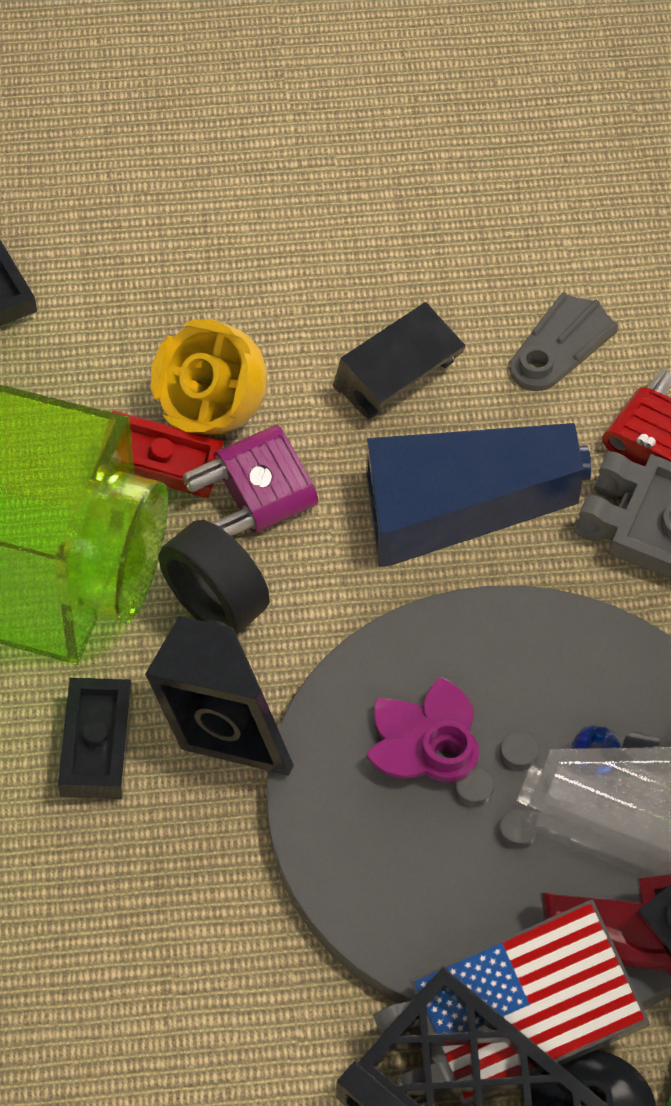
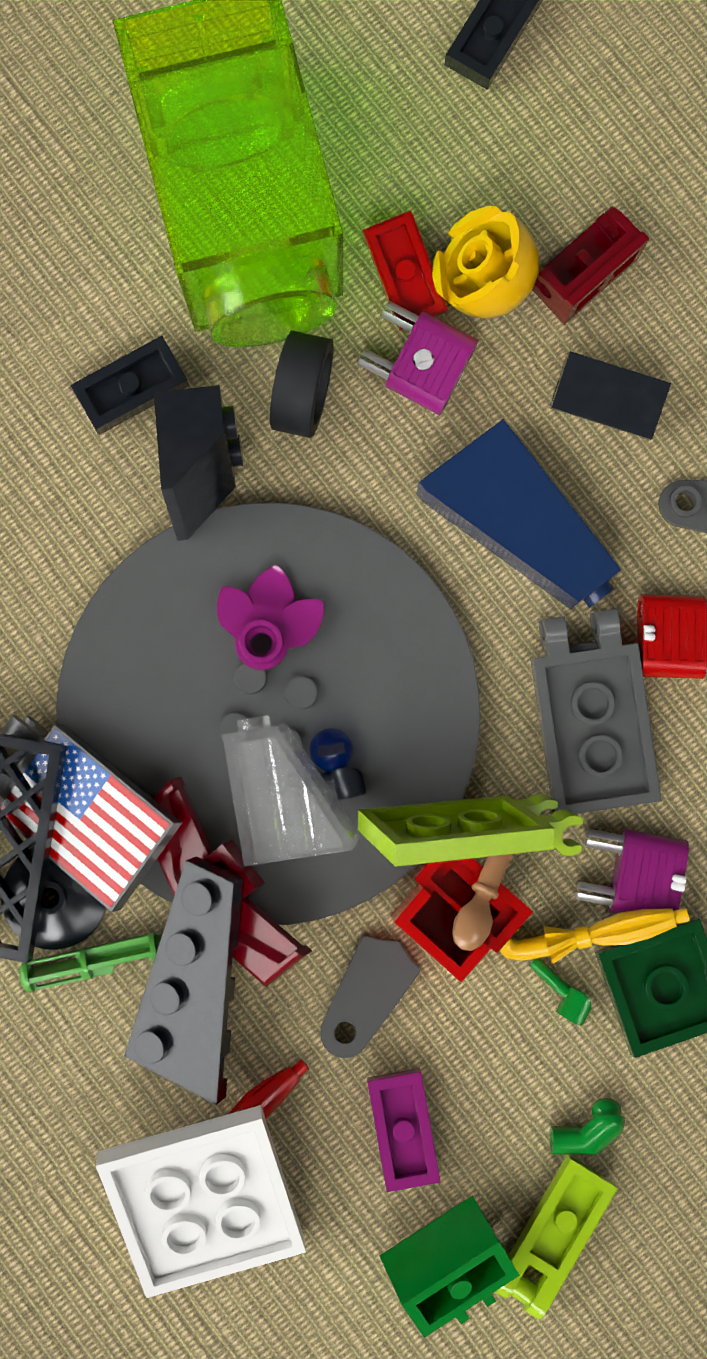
camera: 55 degrees right, 30 degrees up
(265, 311) = (589, 264): none -> dark red hinge

